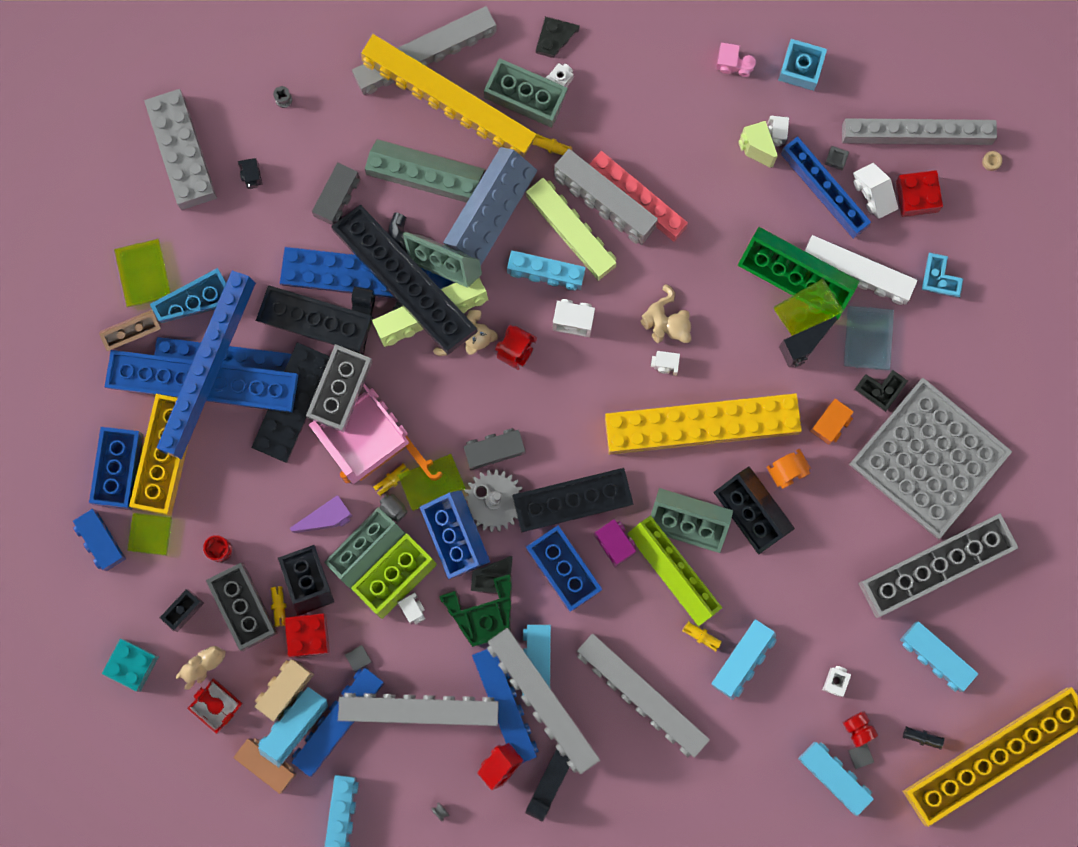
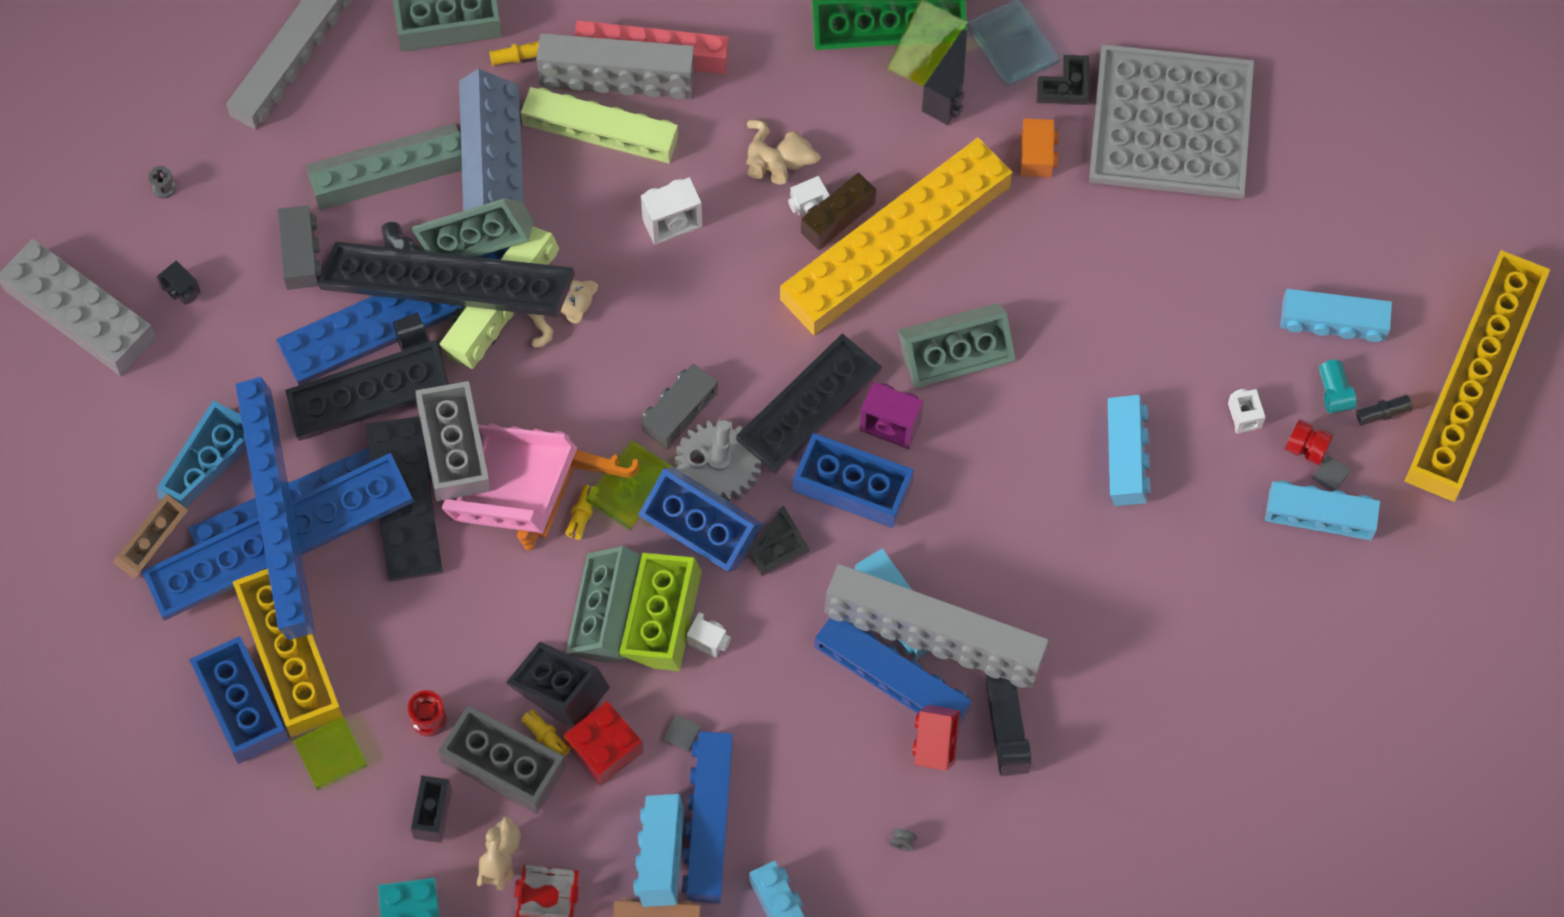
camera: 35 degrees left, 15 degrees down
(98, 540) = (272, 797): blue brick -> none
(142, 272) = (120, 469): clear neon green piece -> none
(283, 689) = (619, 817): tan brick -> none
(327, 516) = (533, 600): medium lavender slope -> none
(393, 507) = (604, 538): flat silver brick -> none
(418, 710) = (797, 733): light grey brick -> none
(446, 95) = (356, 62): yellow brick -> none
(485, 620) = (801, 595): dark green wing -> none
(515, 347) = (626, 280): red brick -> none
(545, 270) = (602, 182): medium azure brick -> none
(646, 698) = (1042, 562): light grey brick -> none
(674, 570) = (982, 405): lime brick -> none
(677, 384) = (838, 211): none -> dark brown brick
(701, 636) = (1061, 457): yellow pin -> none
(754, 510) = (1022, 289): black slope -> none
(788, 468) = (1027, 220): orange brick -> none
(902, 709) = (1337, 393): none -> teal piece
(938, 565) = (1263, 221): light grey brick -> none

